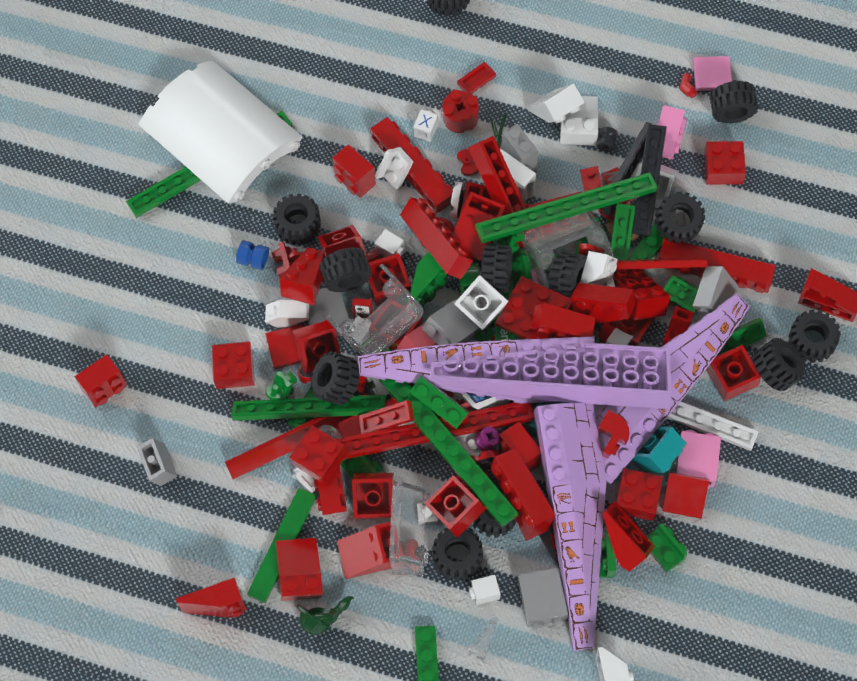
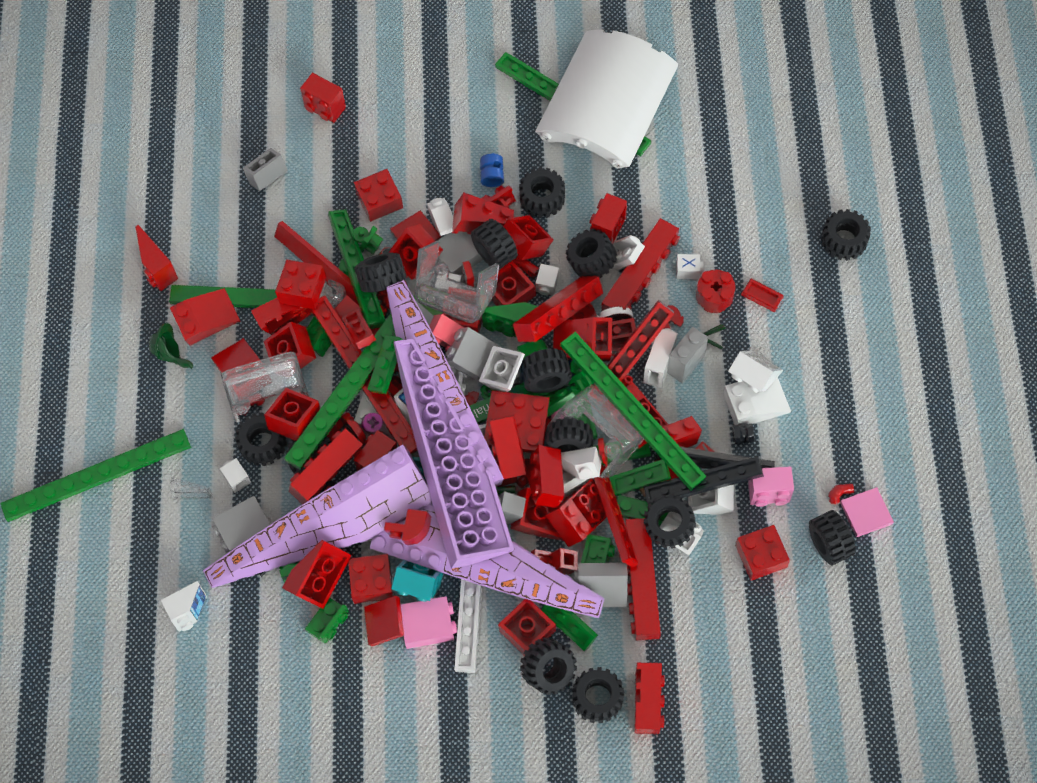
camera: 70 degrees right, 0 degrees up
(370, 191) = (583, 246): none -> black tyre

